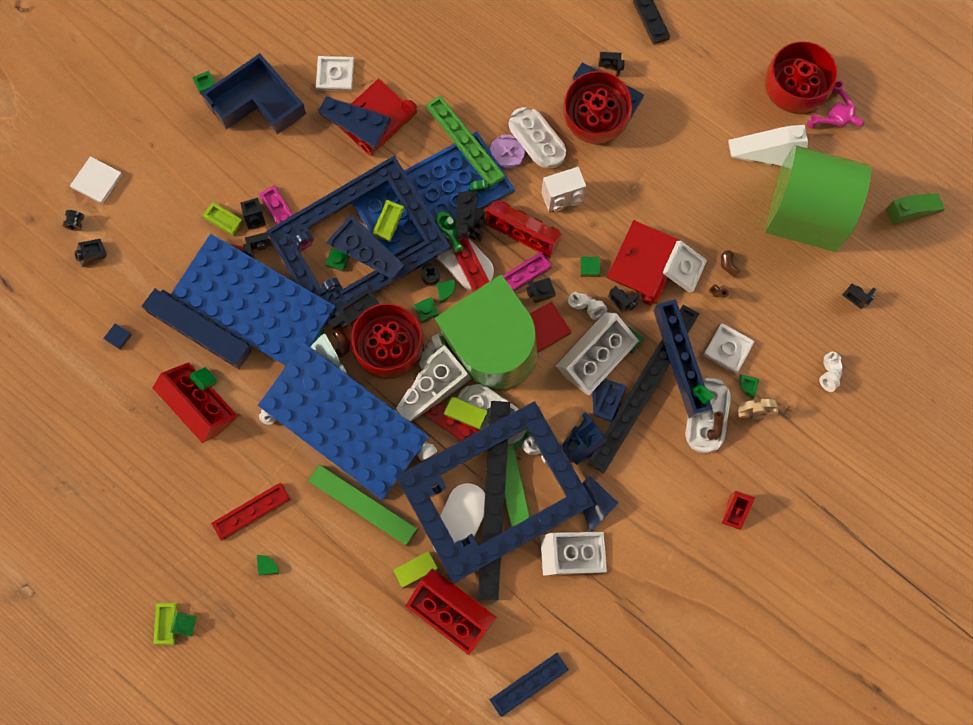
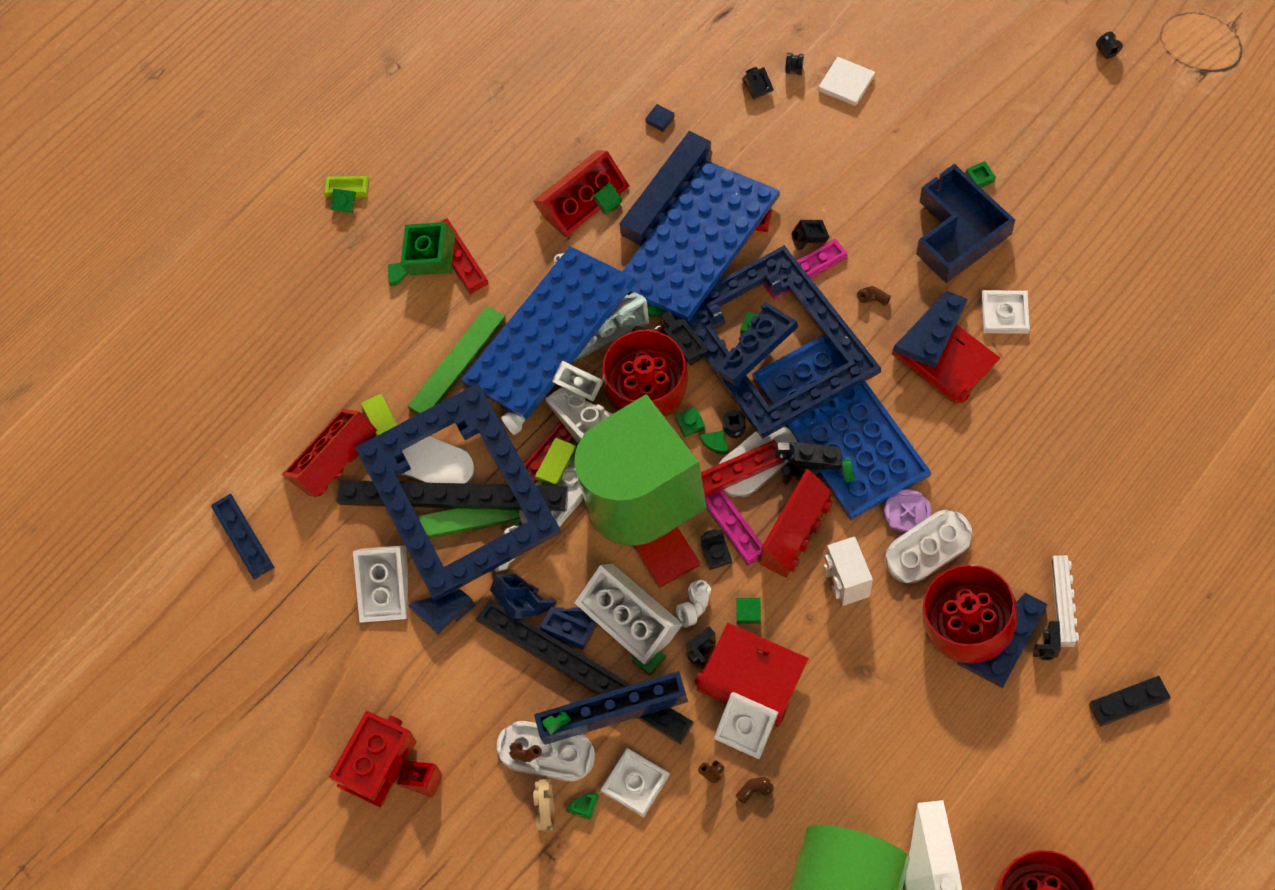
camera: 100 degrees right, 10 degrees down
(223, 219) = (803, 205): lime tile -> none
(249, 534) = (427, 248): none -> green brick
(258, 242) = (768, 234): black bracket -> none
(313, 167) = (873, 294): none -> reddish brown arm
(388, 220) = (793, 365): lime tile -> none
(395, 391) = (577, 380): none -> white slope
(448, 228) = (793, 431): green piece -> none
(465, 141) = (913, 456): bright green tile -> none
(575, 52) = (1063, 600): none -> white piece
(729, 544) = (373, 758): none -> red torso

